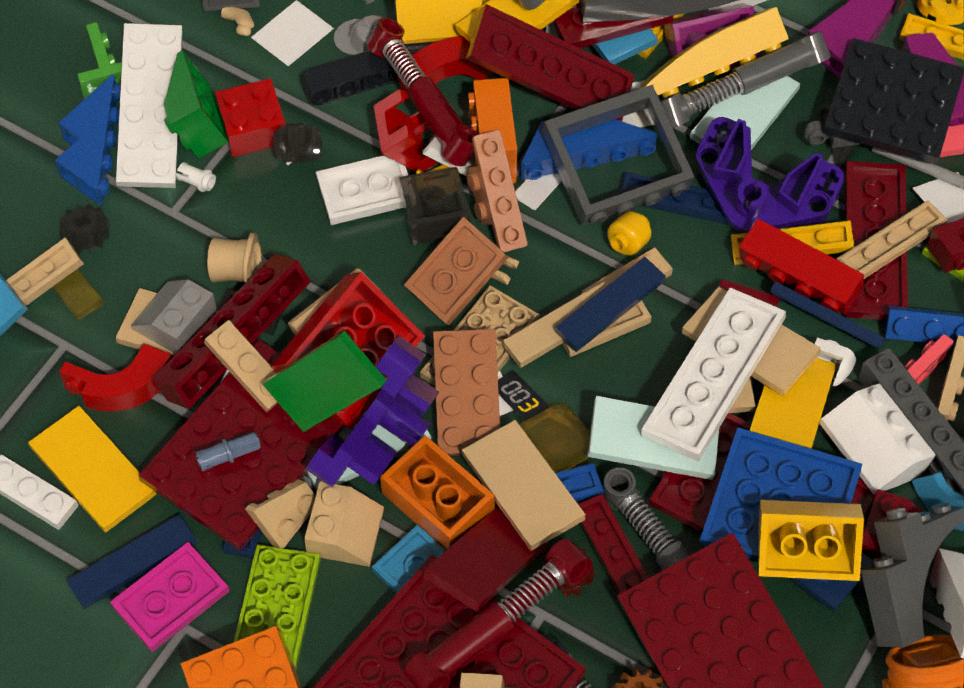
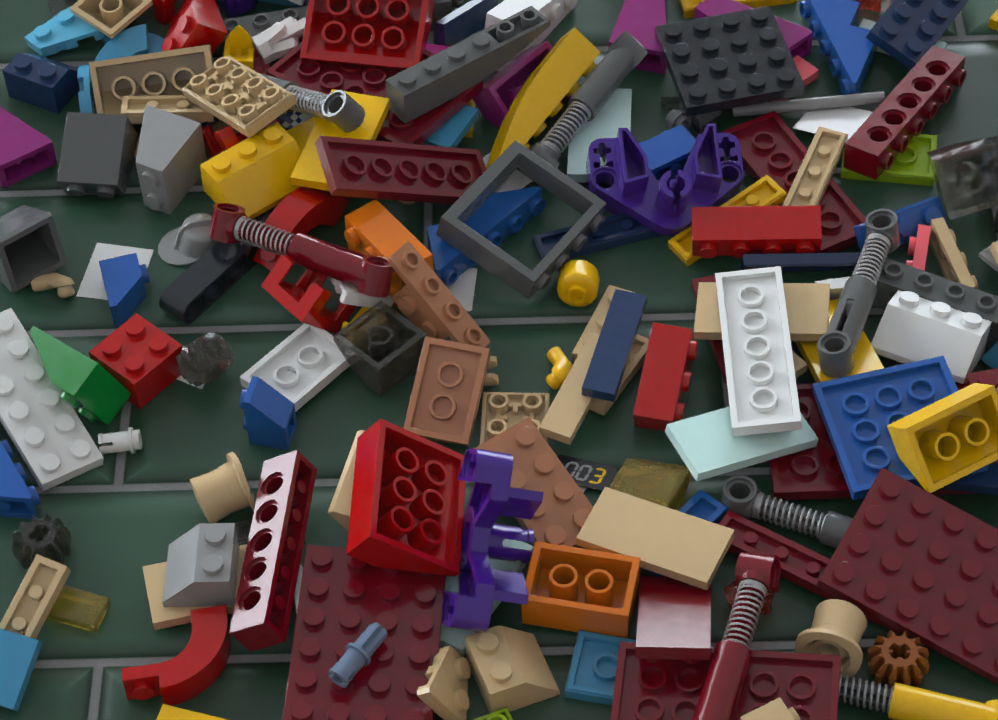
camera: 30 degrees left, 10 degrees down
(242, 362) = (321, 567): tan plate -> none
(284, 49) = (124, 285): none -> blue slope
(310, 216) = (268, 415): none -> blue slope
(324, 381) = (423, 528): green tile -> none
(568, 293) = (560, 368): none -> yellow arm
(601, 648) = (835, 631): none -> tan piece
(633, 353) = (665, 377): none -> red wedge
(778, 156) = (668, 151): none -> blue brick
(782, 406) = (857, 297): none -> dark grey piece

